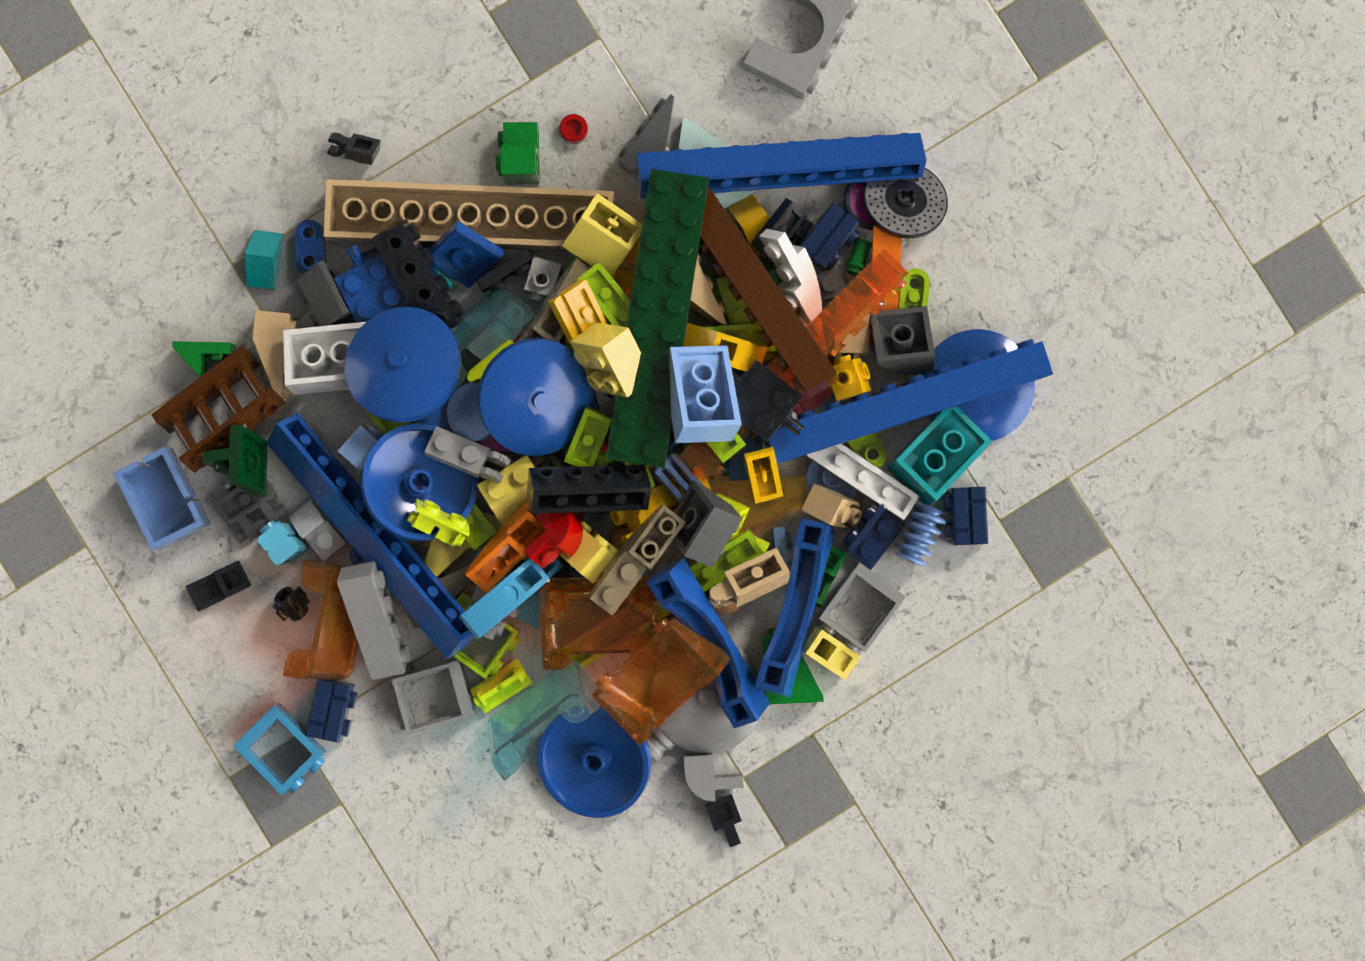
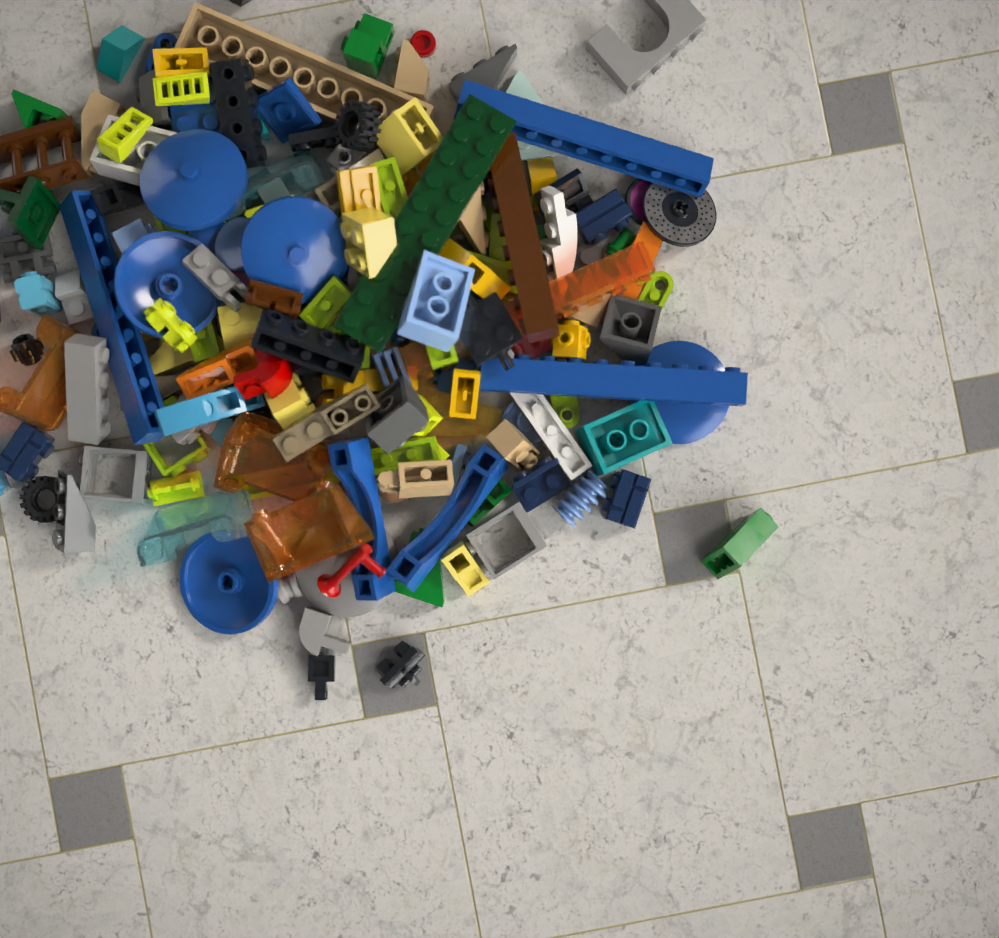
camera: 25 degrees right, 0 degrees up
(310, 362) = (119, 149): none -> neon yellow slope
(324, 410) = (117, 197): none -> black slope
(341, 250) = (180, 61): none -> yellow slope
(353, 751) = (30, 499): none -> black tyre
(368, 256) = (182, 99): none -> neon yellow slope
(411, 761) = (74, 523): none -> slope
(534, 454) = (274, 298): none -> reddish brown hinge
(535, 244) = (365, 135): none -> black tyre
(575, 164) = (411, 74): none -> tan slope
(700, 722) = (330, 584): none -> red piece
(799, 789) = (404, 670): none -> black hips
(1101, 517) = (740, 544): none -> slope

